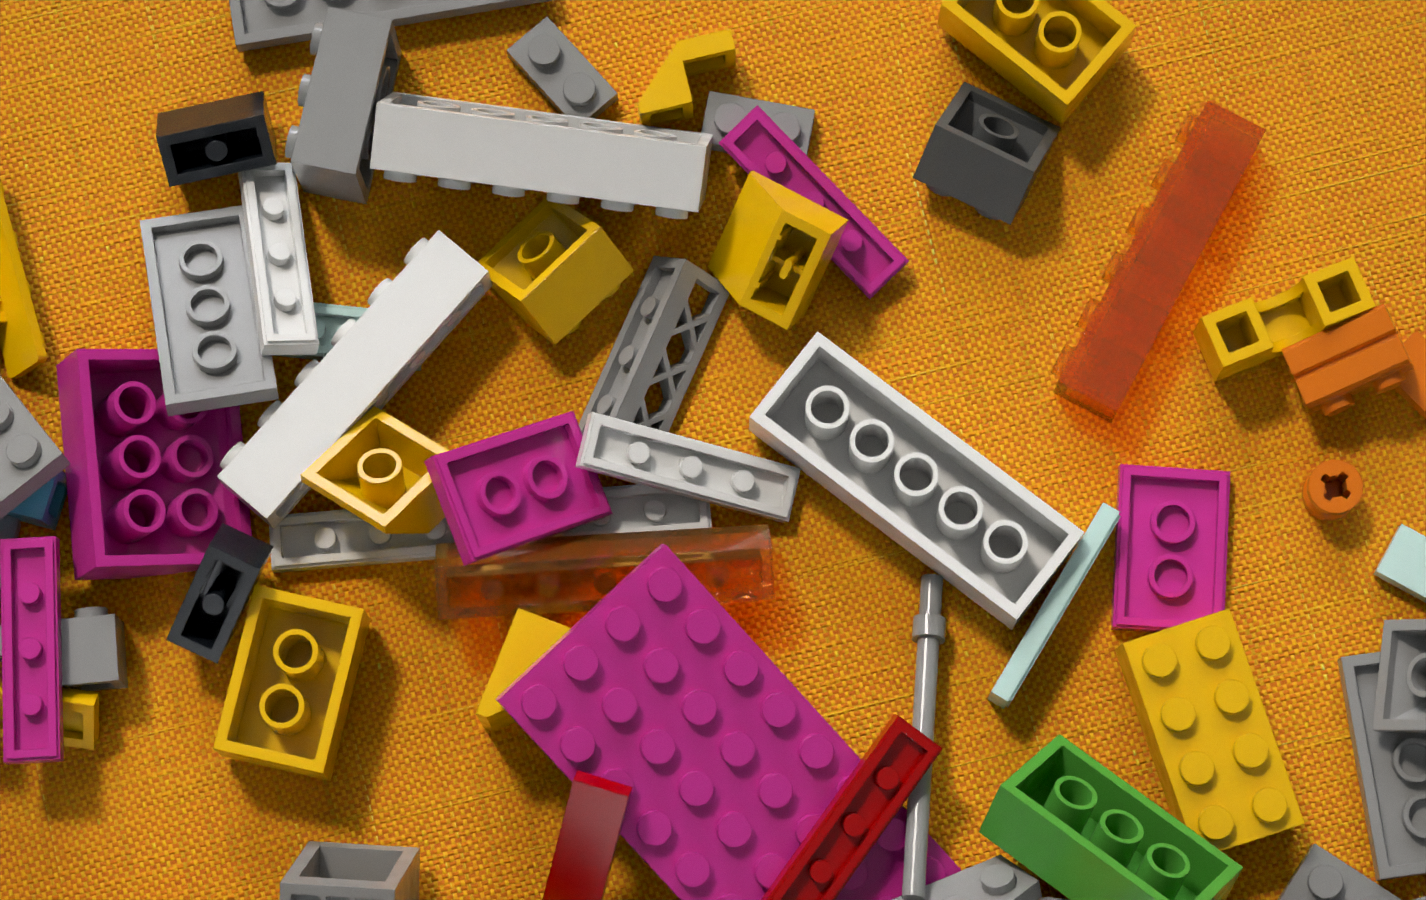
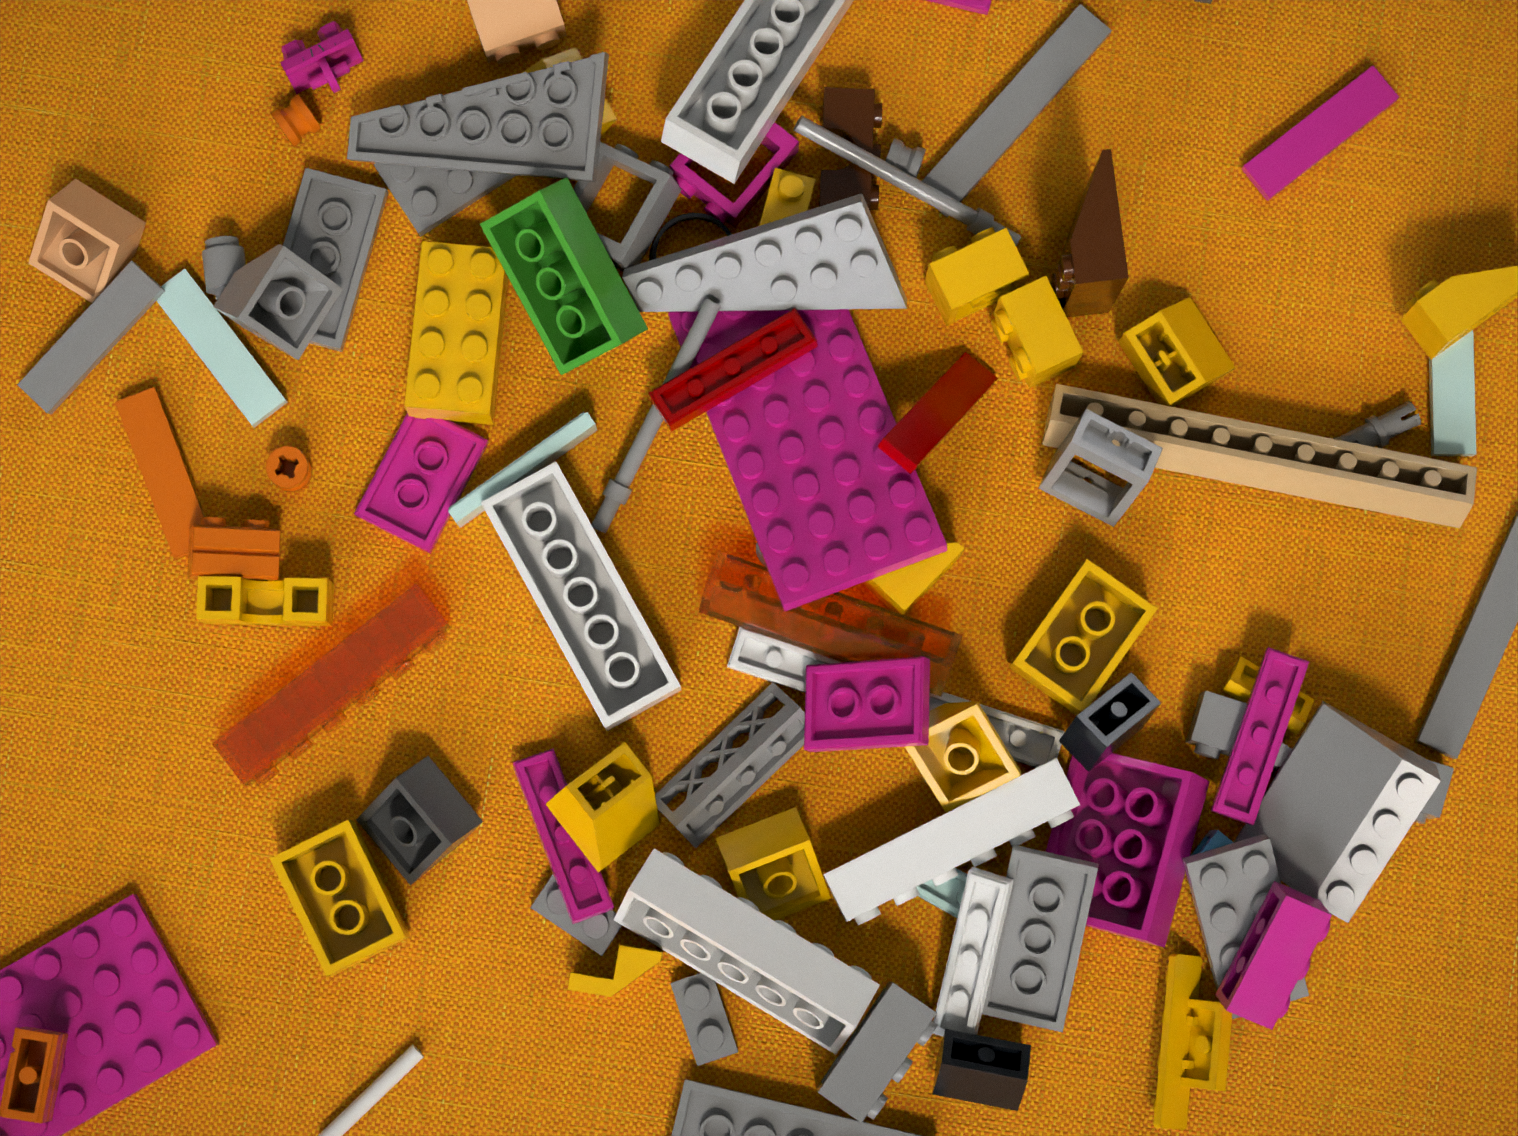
camera: 160 degrees left, 5 degrees up
(687, 467) = (738, 675): white tile -> none

